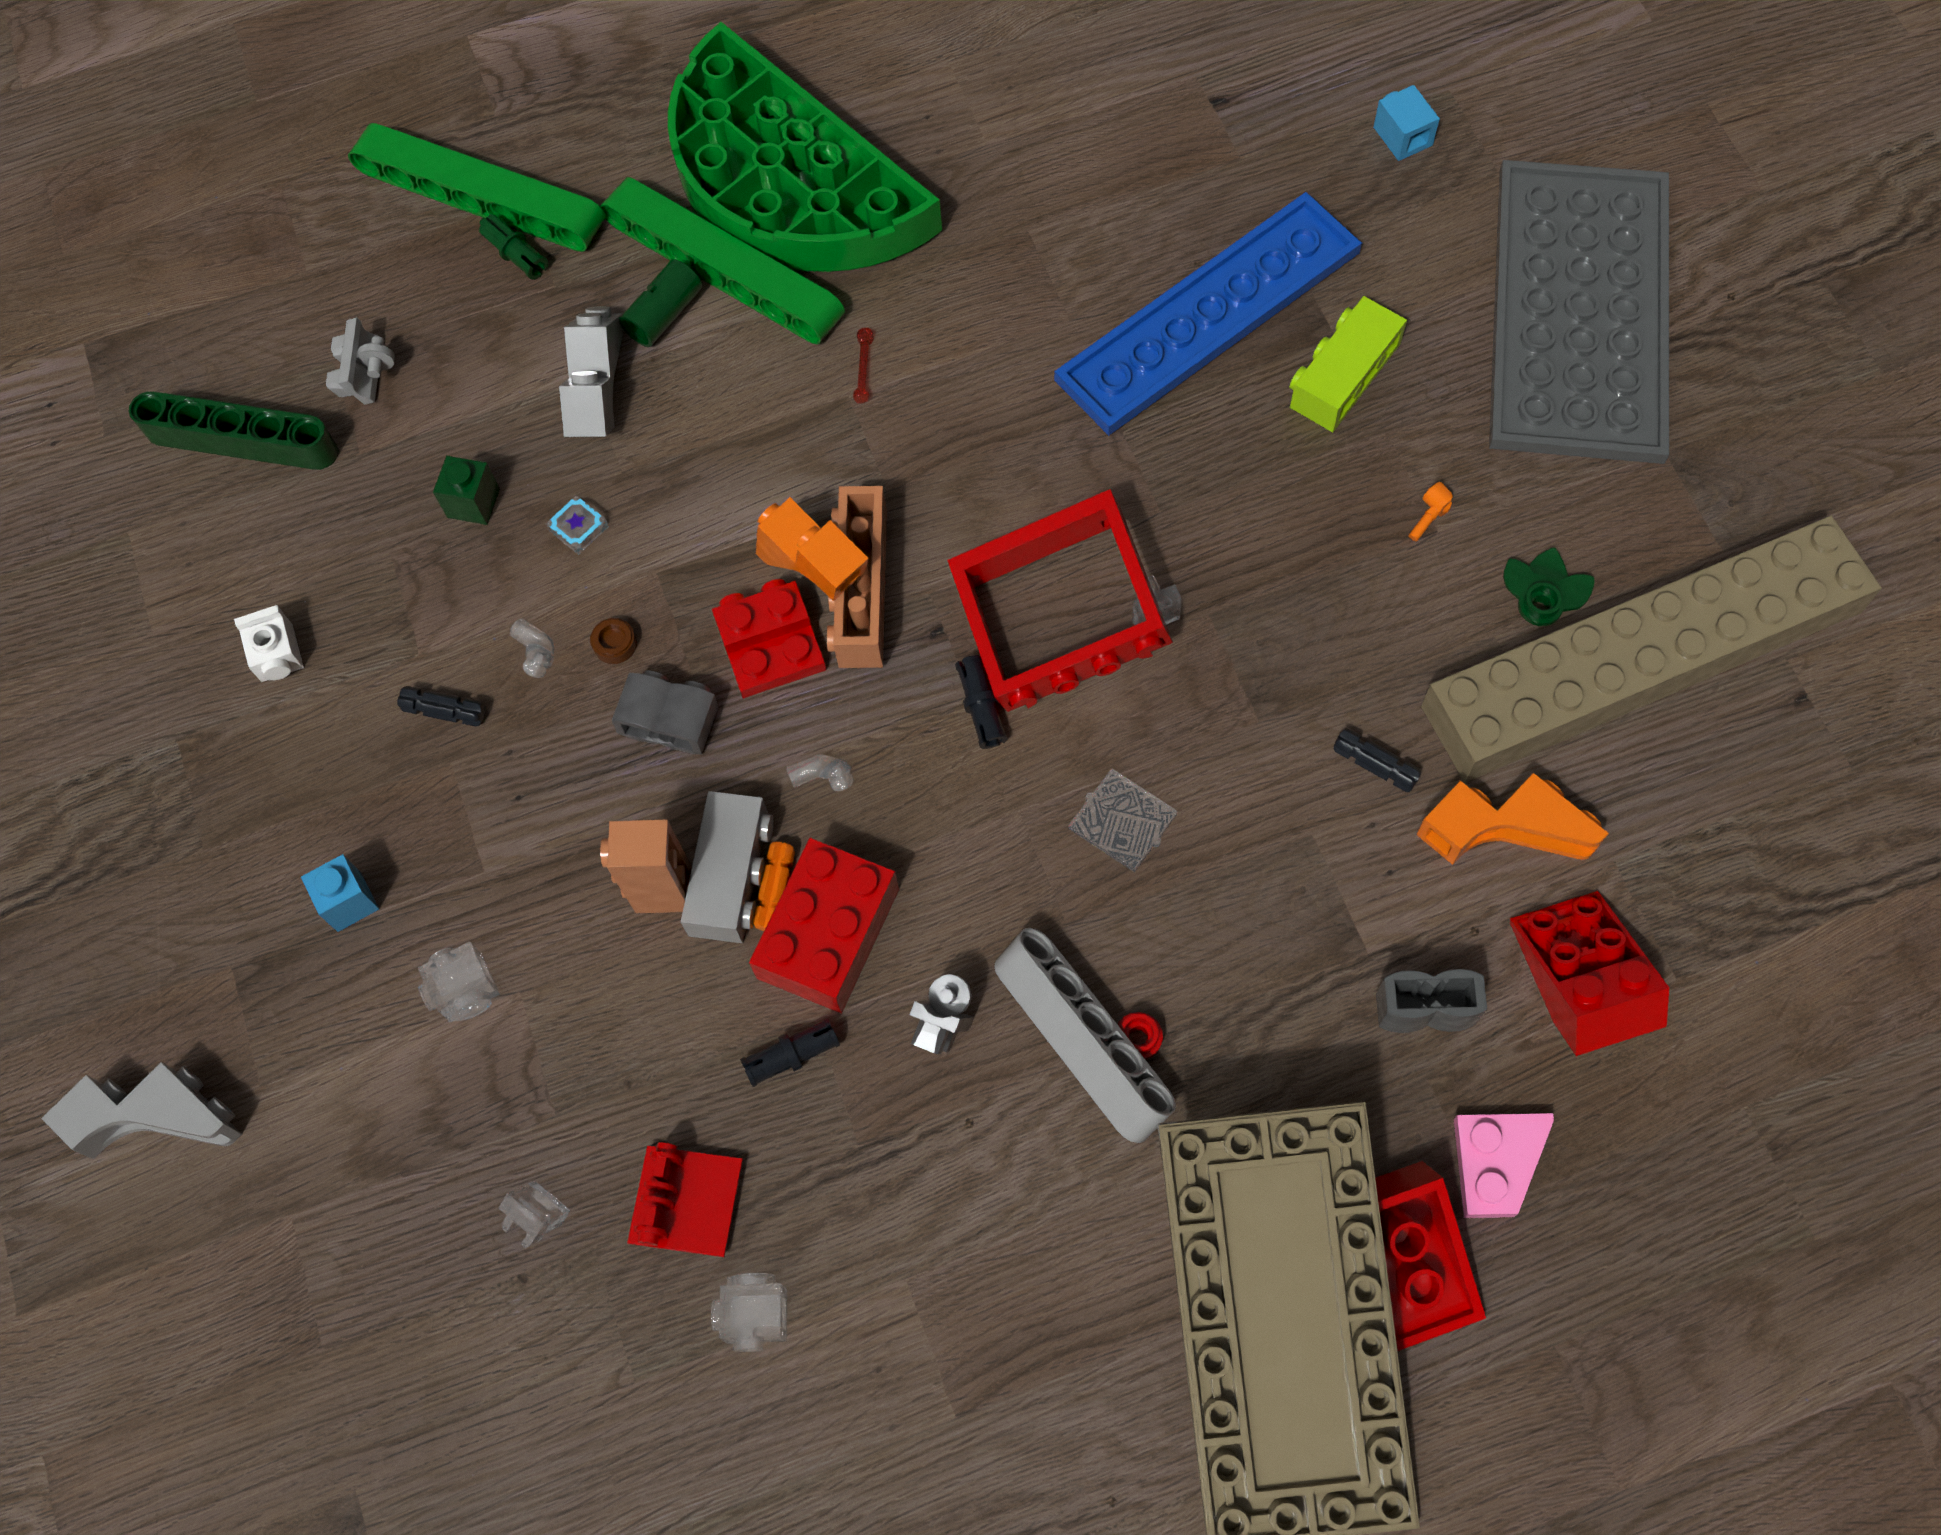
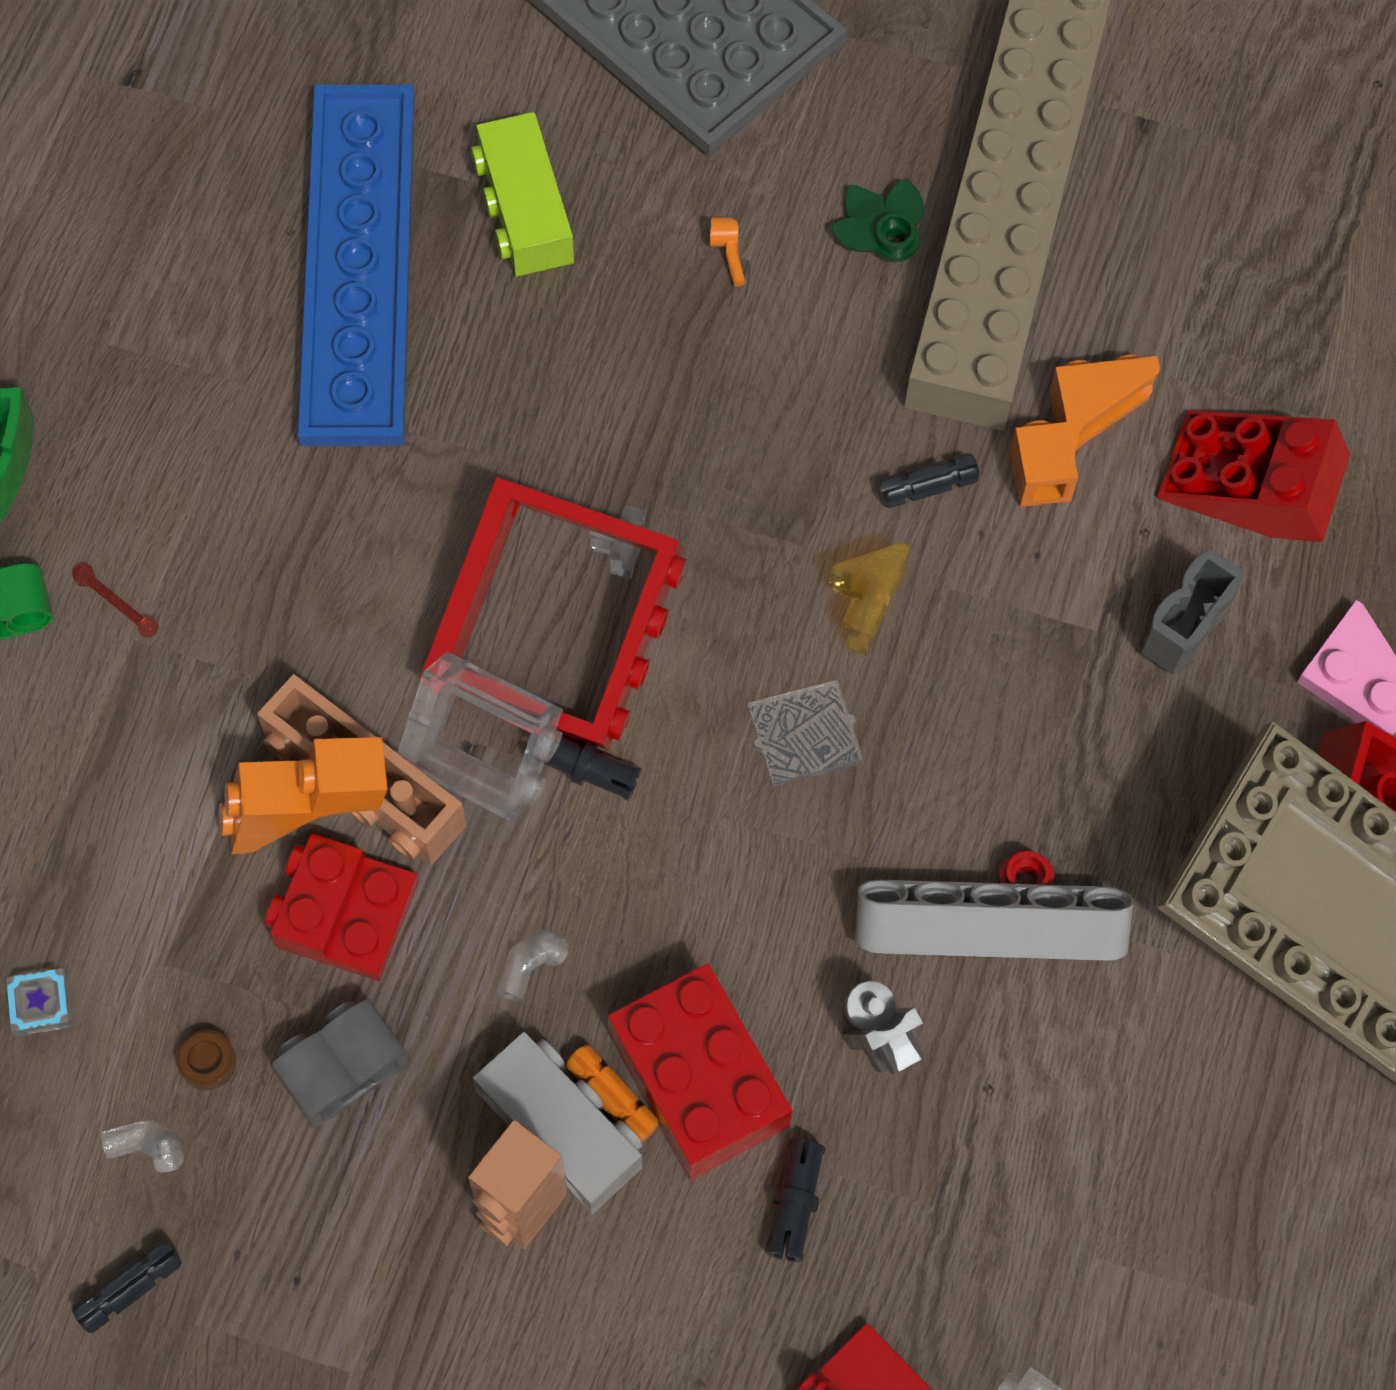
camera: 60 degrees left, 0 degrees up
(907, 602) = (457, 769): none -> clear window
(1267, 783) = (872, 585): none -> clear yellow slope

